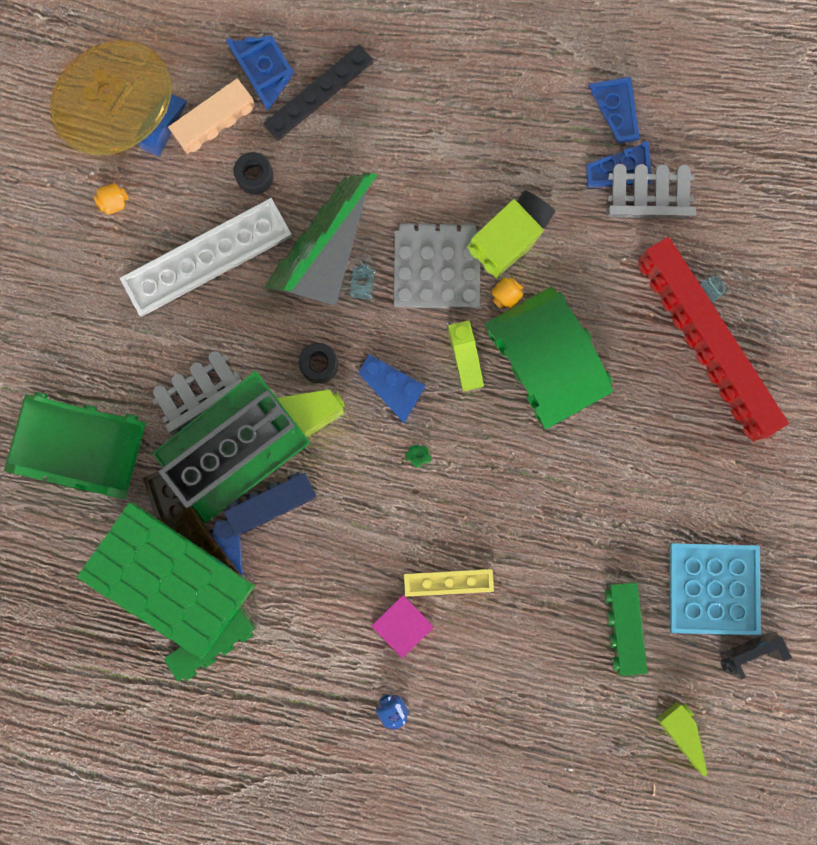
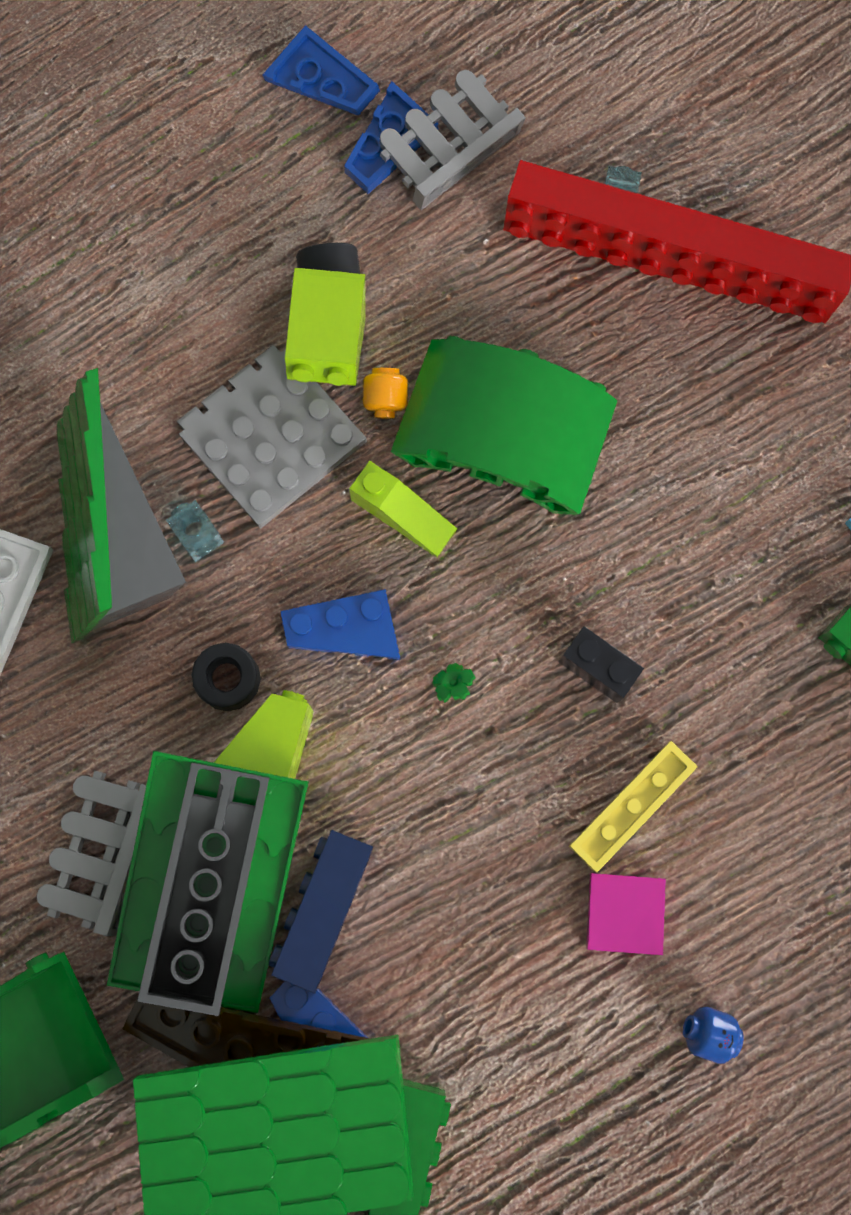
camera: 45 degrees left, 5 degrees down
(491, 506) = (601, 665): none -> black brick

